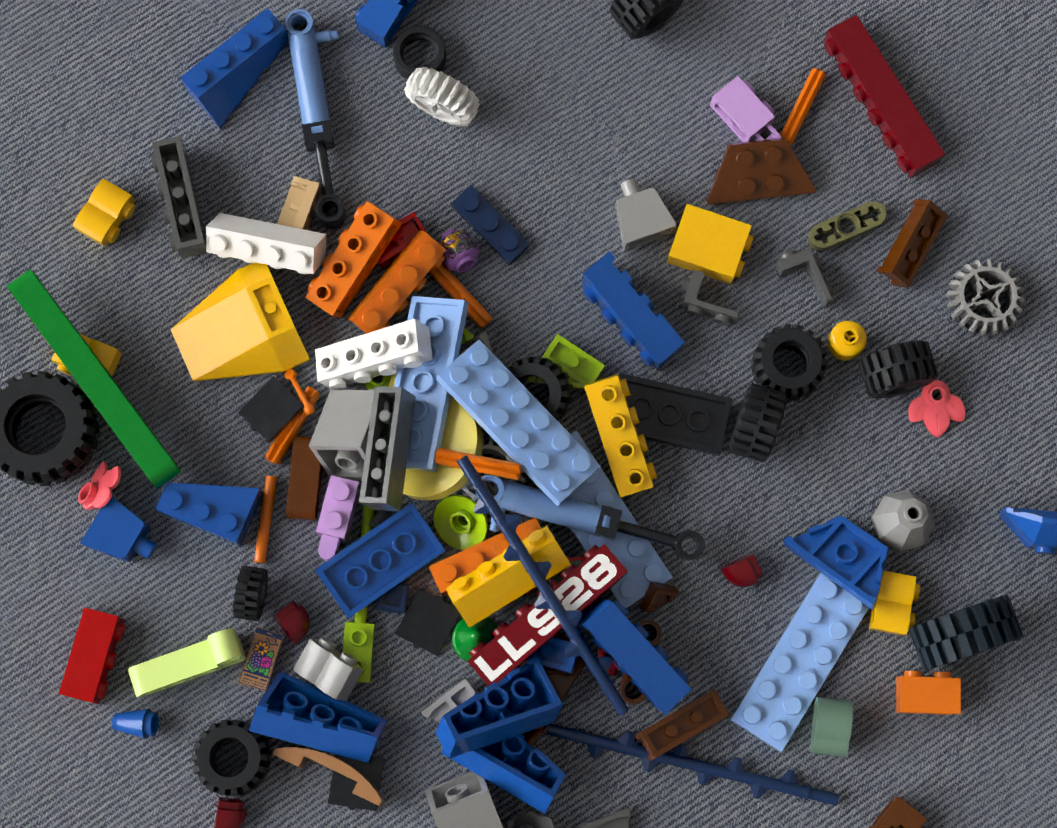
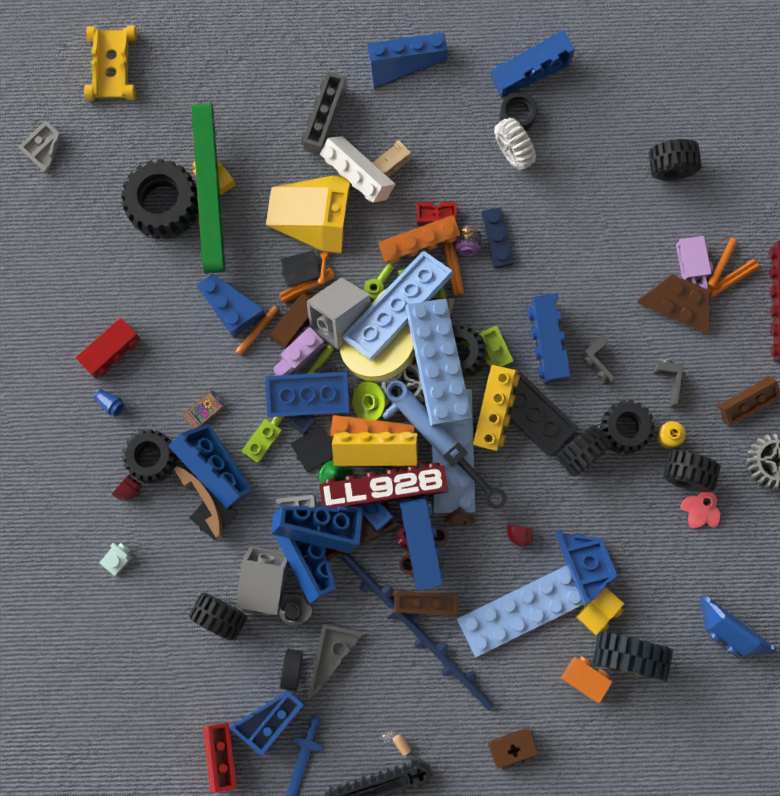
camera: 35 degrees right, 0 degrees up
(99, 490) = (169, 256): coral plate -> none
(104, 213) = (276, 97): yellow brick -> none
(118, 533) = (168, 286): blue torso -> none
(188, 663) = (179, 390): yellowish green beam -> none
(250, 593) = (220, 367): black tyre -> none
(293, 621) = (236, 399): dark red piece -> none
(314, 106) = (430, 119): medium blue piece -> none
(328, 668) = (237, 439): light grey brick -> none
(353, 259) = (402, 208): orange brick -> none
(373, 354) = (379, 271): white brick -> none
(387, 448) = (350, 330): dark grey brick -> none
(482, 464) = (398, 371): orange axle -> none
(547, 599) = (389, 476): dark blue plant -> none
(642, 216) = (592, 286): light grey torso -> none
(710, 244) = (623, 327): yellow brick -> none
(779, 95) = (722, 263): none -> orange bar
(831, 726) = (515, 661): sand green piece -> none
(868, 225) = (729, 374): olive beam -> none
(903, 521) = (631, 568): light grey cone -> none

